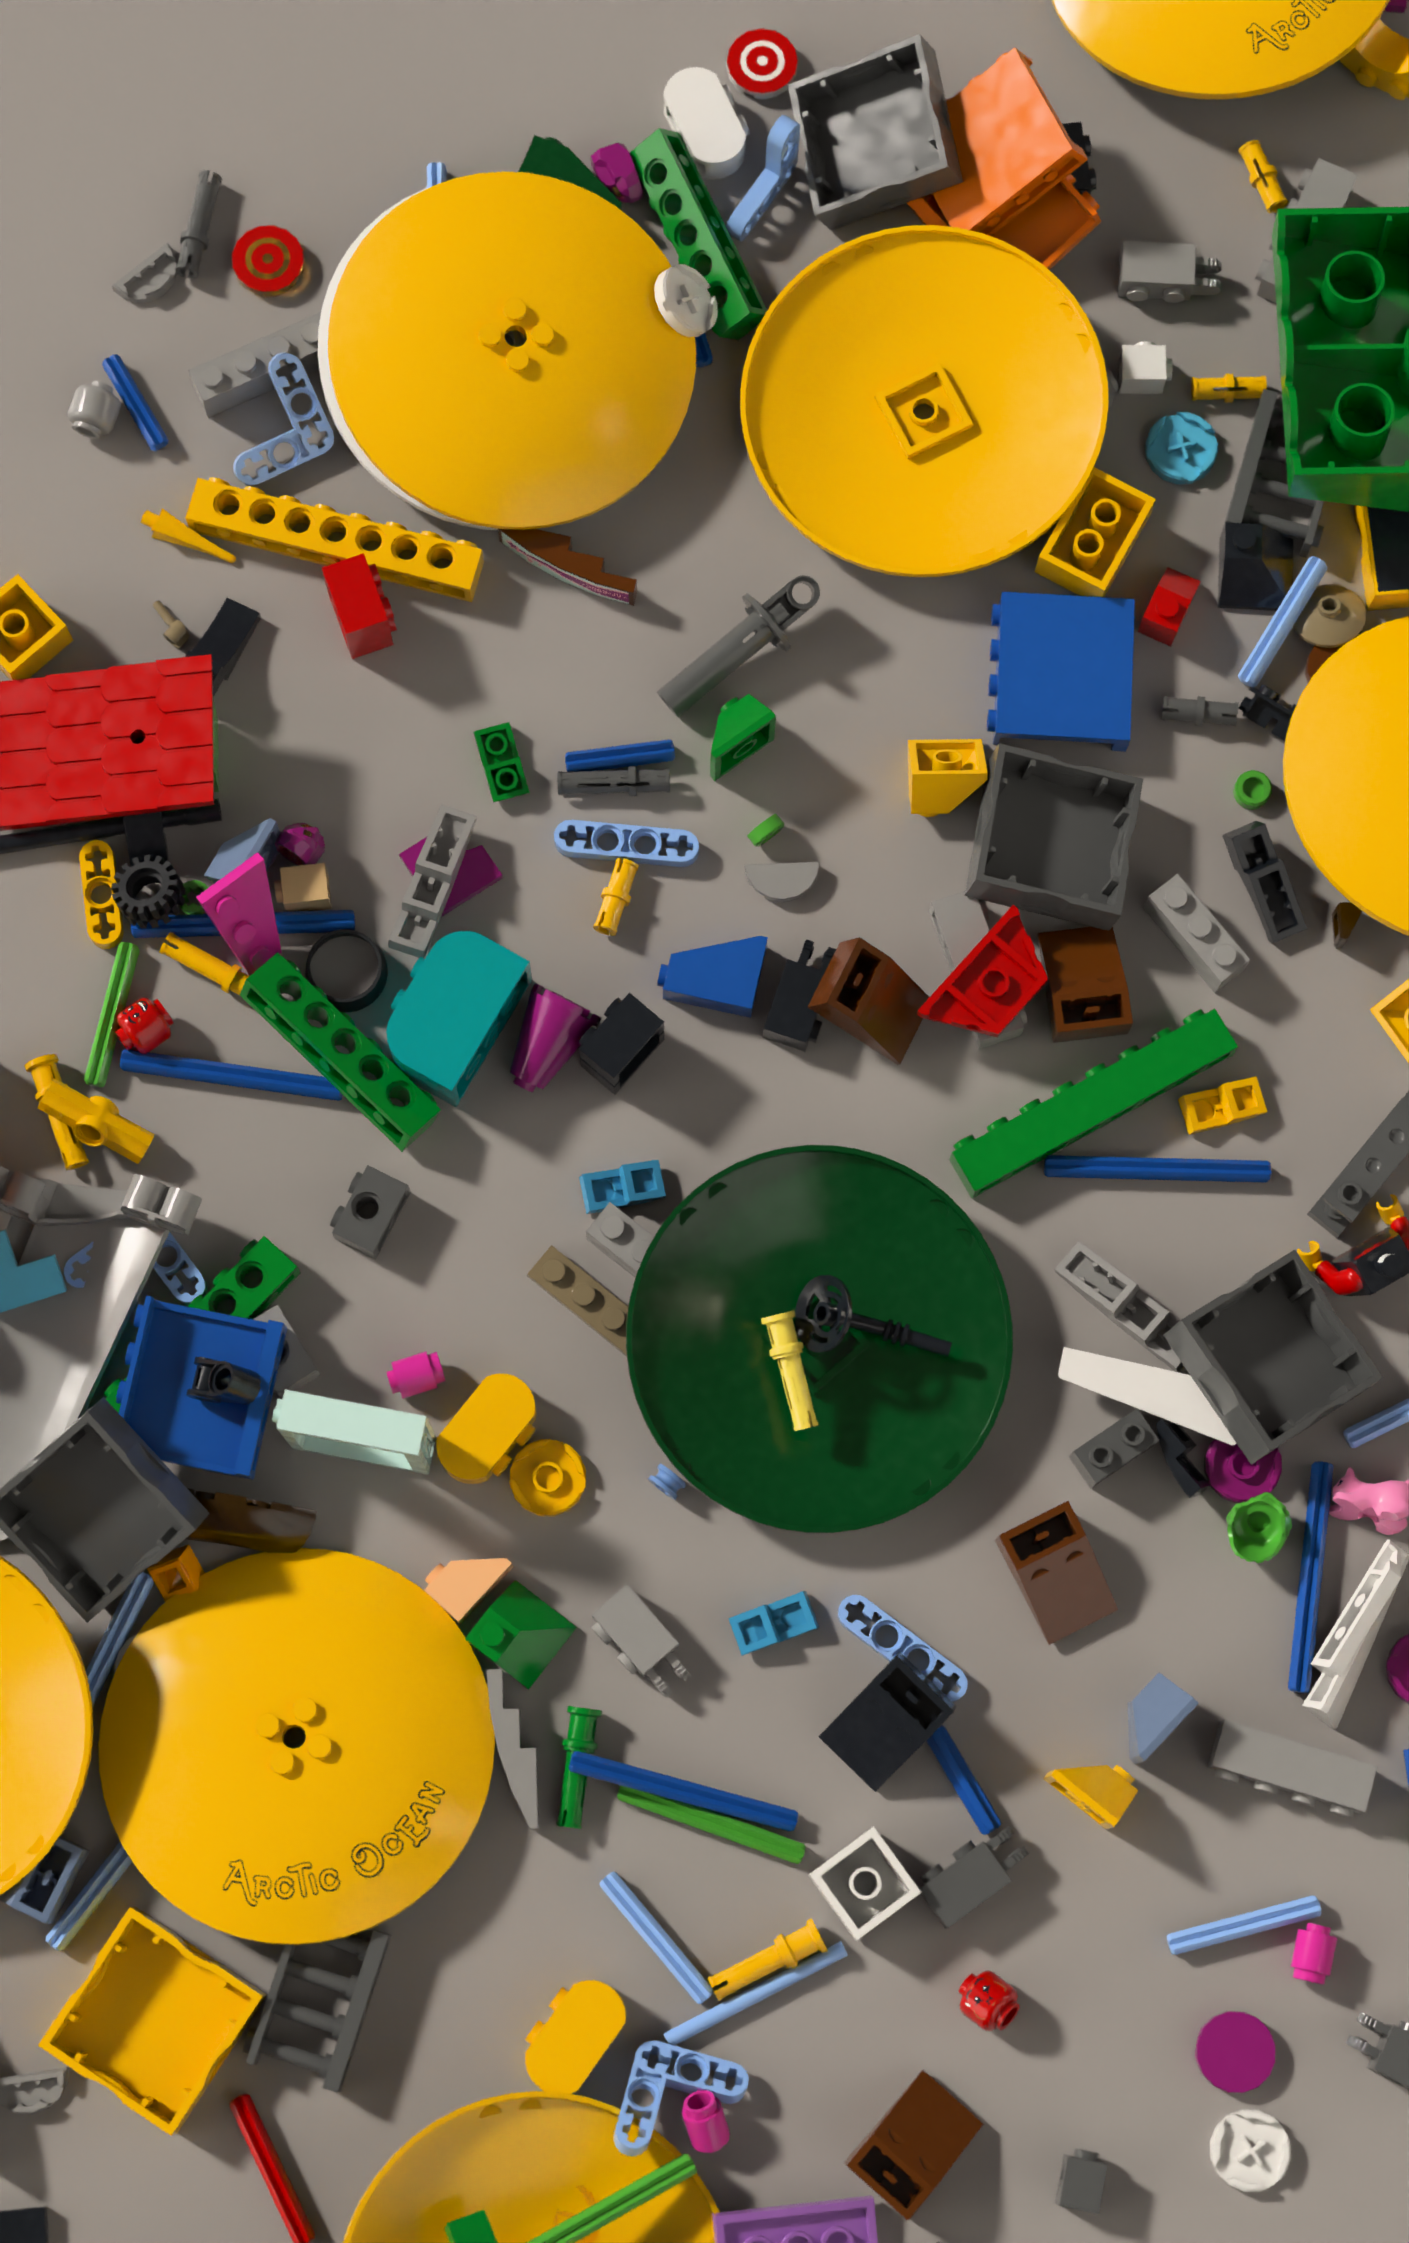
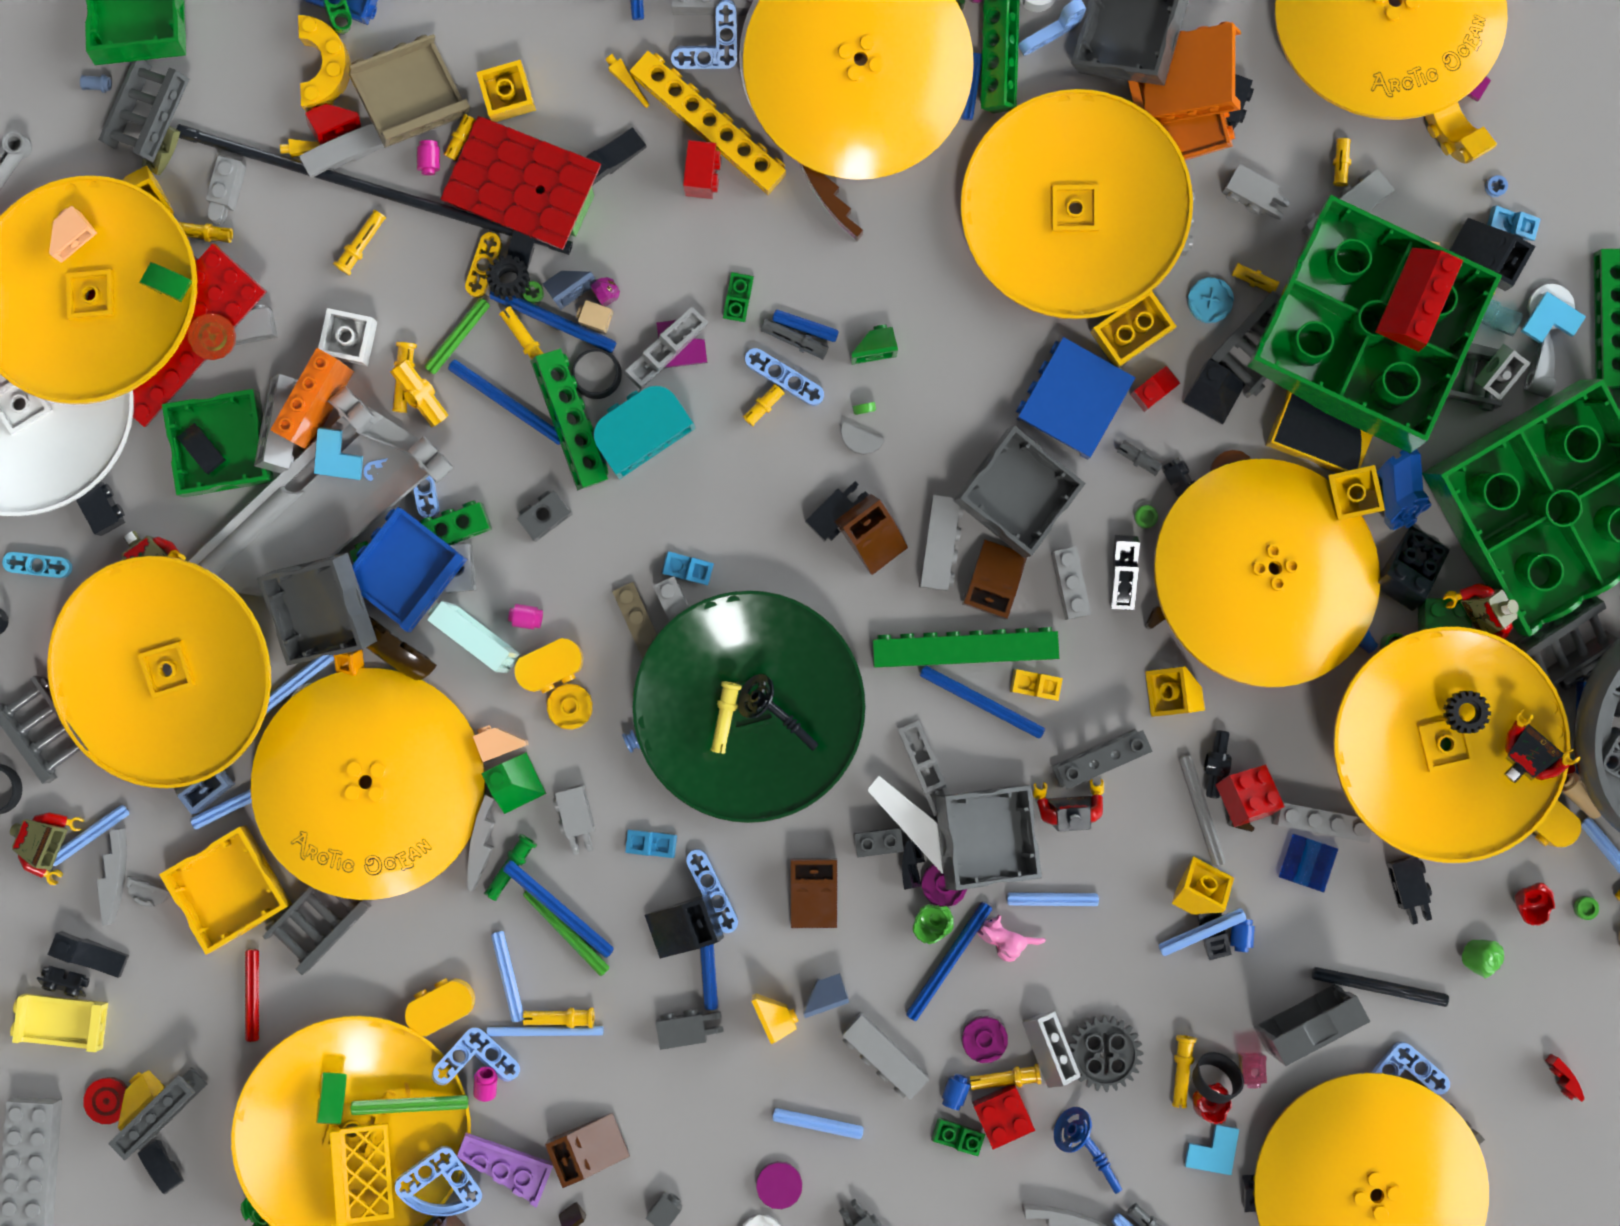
camera: 25 degrees right, 10 degrees up
(144, 1025) = (470, 351): red head -> none
(176, 633) = (595, 133): dark tan hand -> none
(223, 1382) = (417, 574): black piece -> none
(244, 913) = (552, 318): dark pink wing -> none
(548, 1037) = (687, 466): magenta cone -> none
(621, 1042) = (723, 490): black piece -> none
(685, 300) = (970, 80): white tile -> none
(716, 976) = (796, 477): blue slope -> none
(730, 652) = (921, 291): dark grey piece -> none
(864, 1883) = (628, 1004): white brick -> none
(943, 773) = (979, 424): yellow slope -> none
(988, 2001) = (663, 1096): red head -> none
(990, 981) = (942, 556): red wing -> none
(1143, 368) = (1213, 243): white brick -> none
(1282, 621) = (1213, 429): light blue axle -> none
(1313, 1953) = (845, 1157): dark pink brick -> none
(1332, 627) = (1238, 447): dark tan dish -> none
(1353, 1635) = (955, 1003): white wedge -> none

